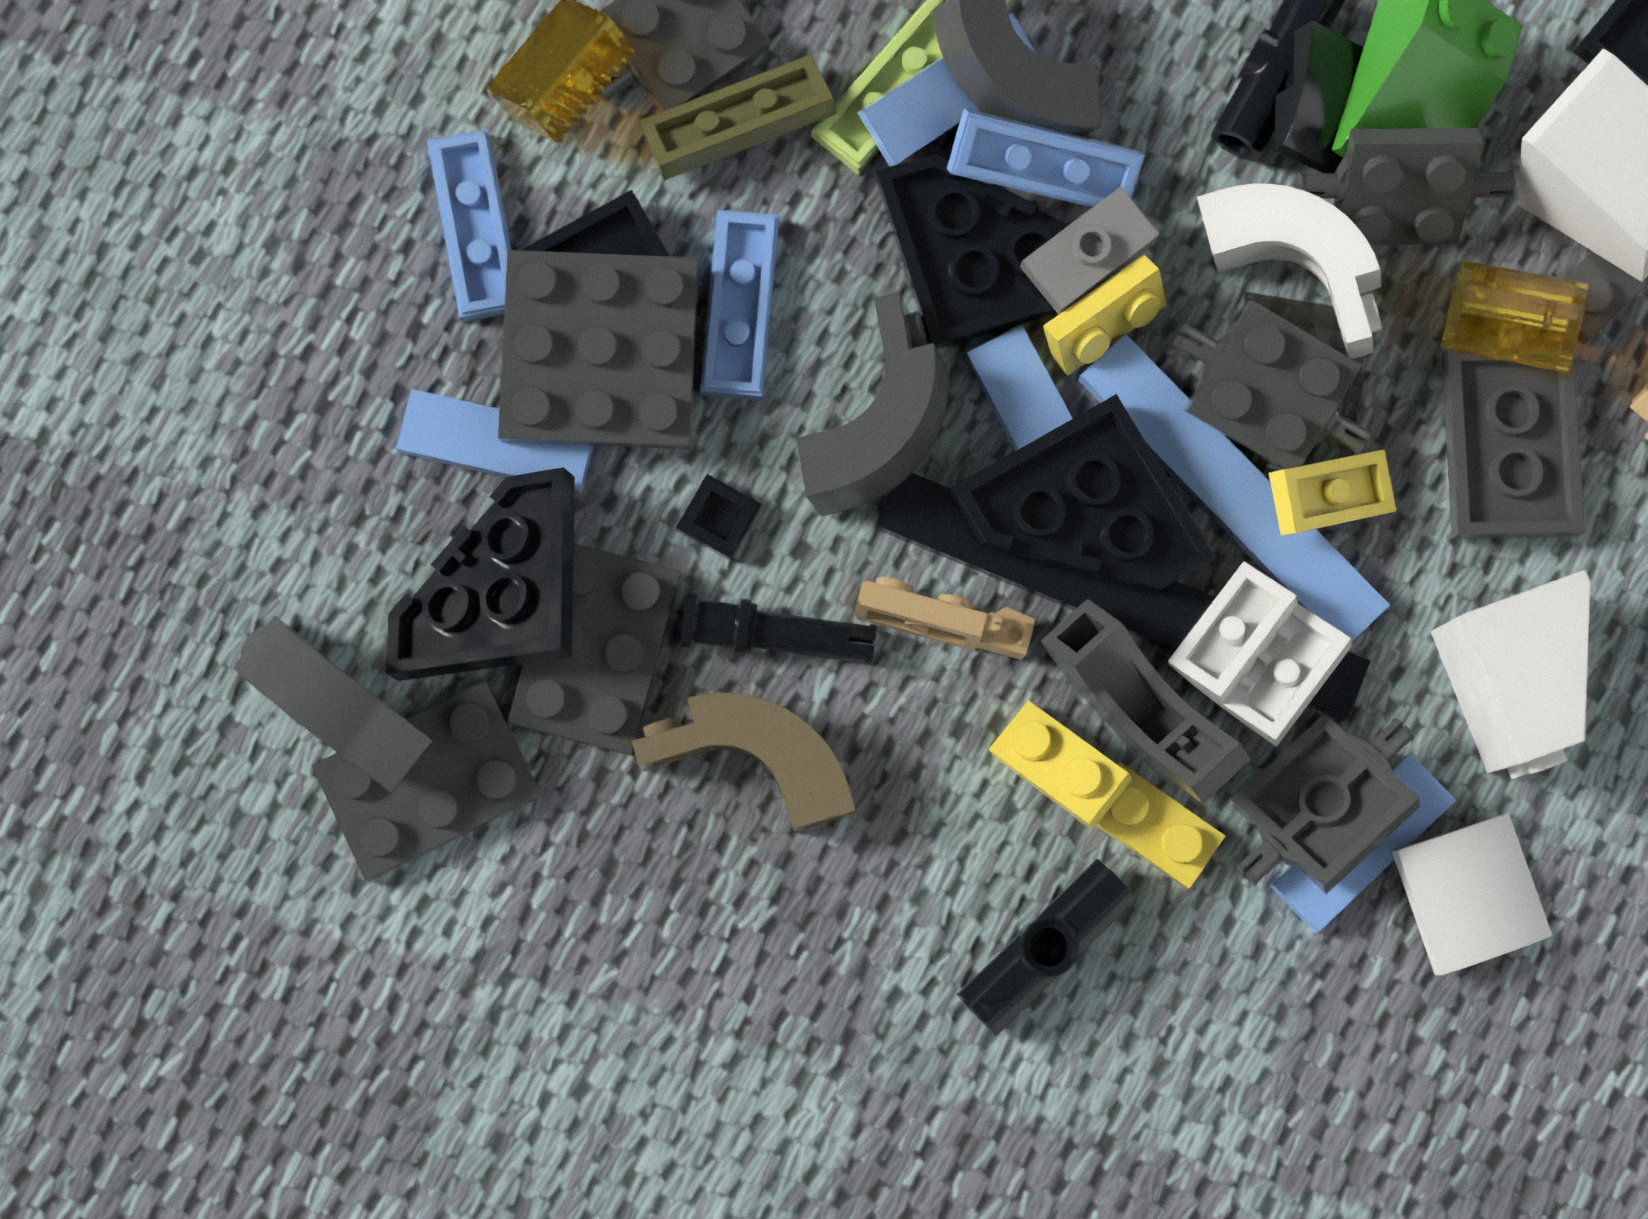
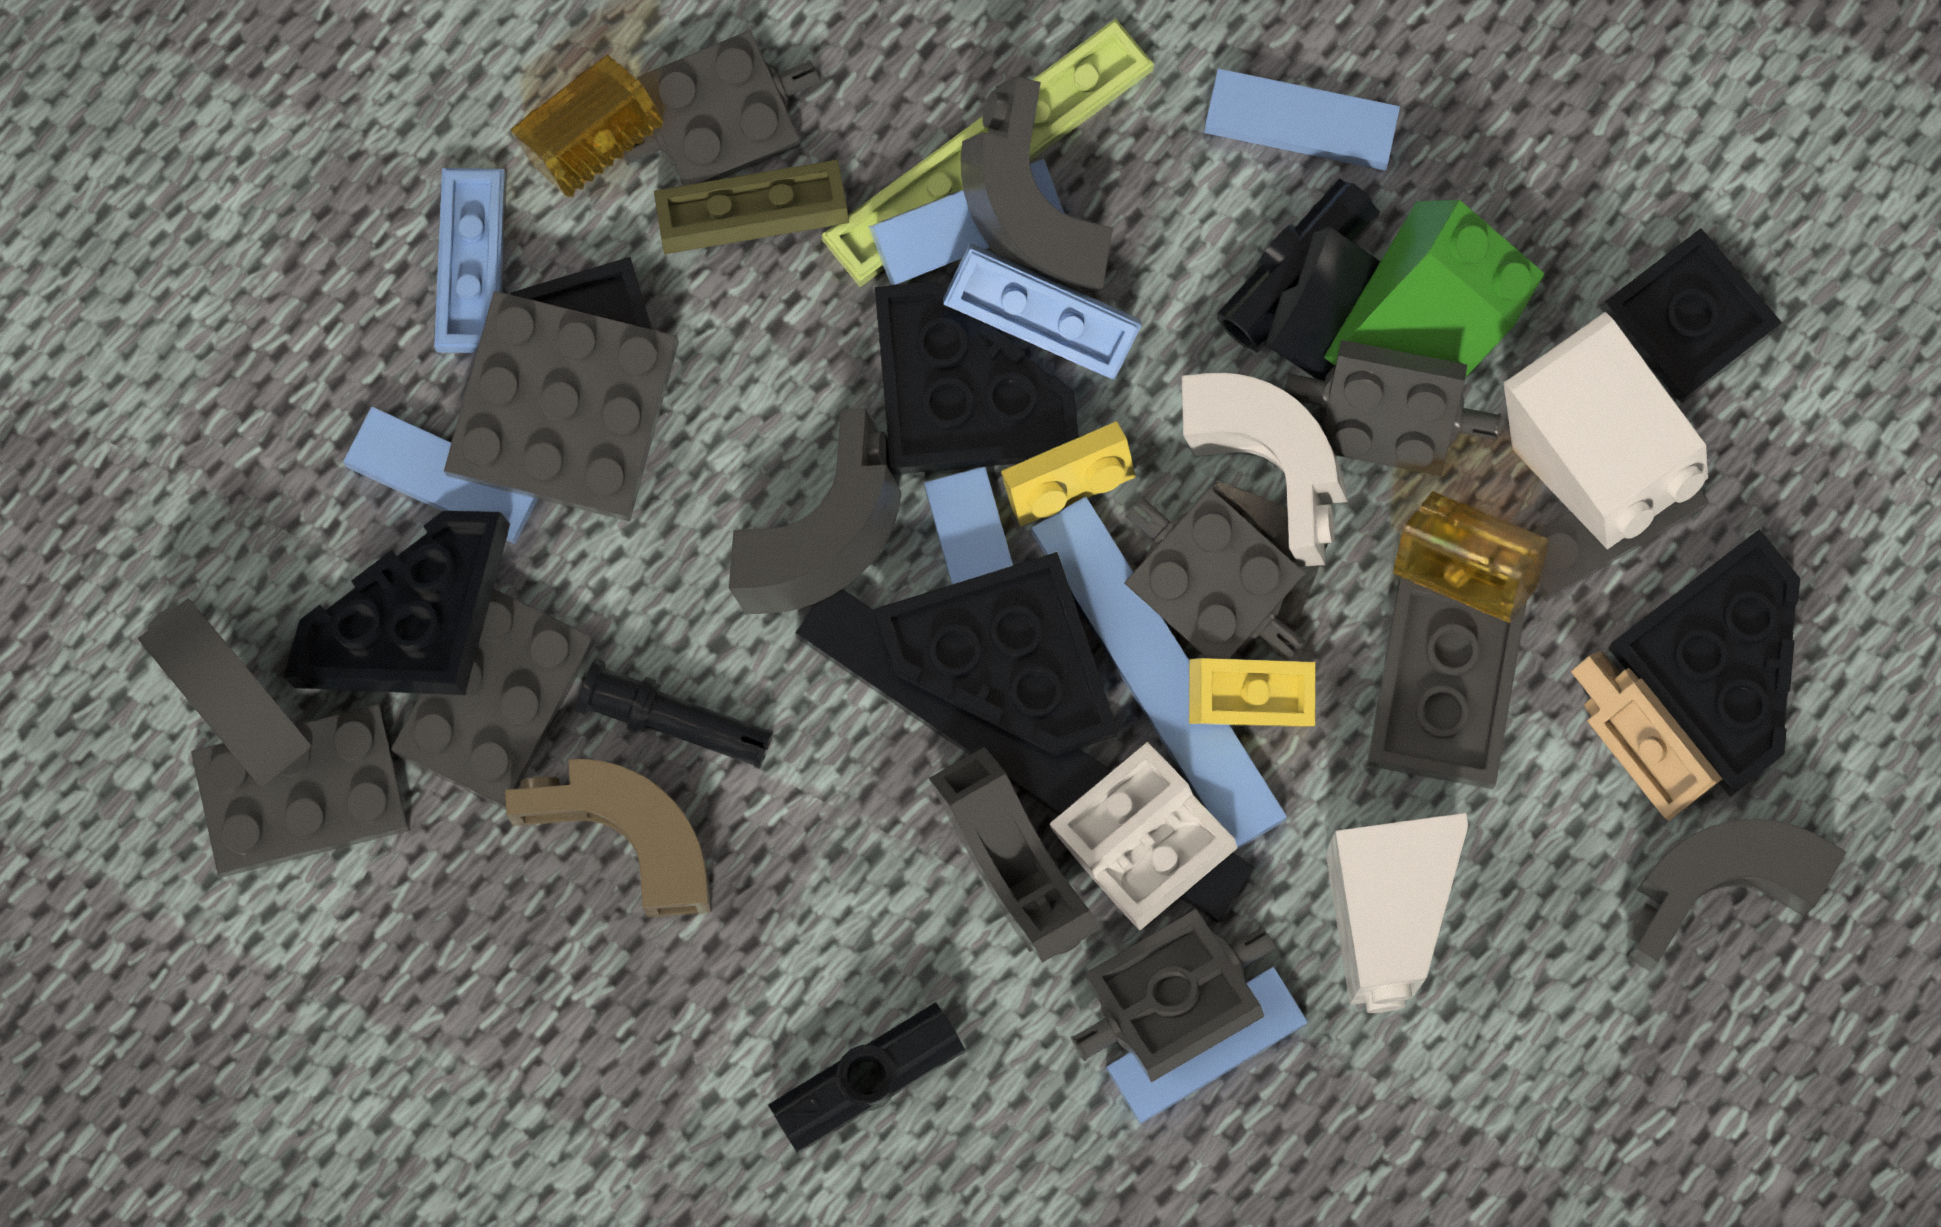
camera: 15 degrees right, 5 degrees down
(719, 517) = (644, 594): black tile -> none
(739, 305) = (712, 391): light blue tile -> none
(943, 619) = (841, 739): tan hinge -> none
(1060, 764) = (922, 903): light yellow plate -> none
(1089, 250) = (1065, 406): light grey plate -> none
(1161, 830) = (1002, 984): light yellow plate -> none
(1472, 894) = (1303, 1116): white slope -> none

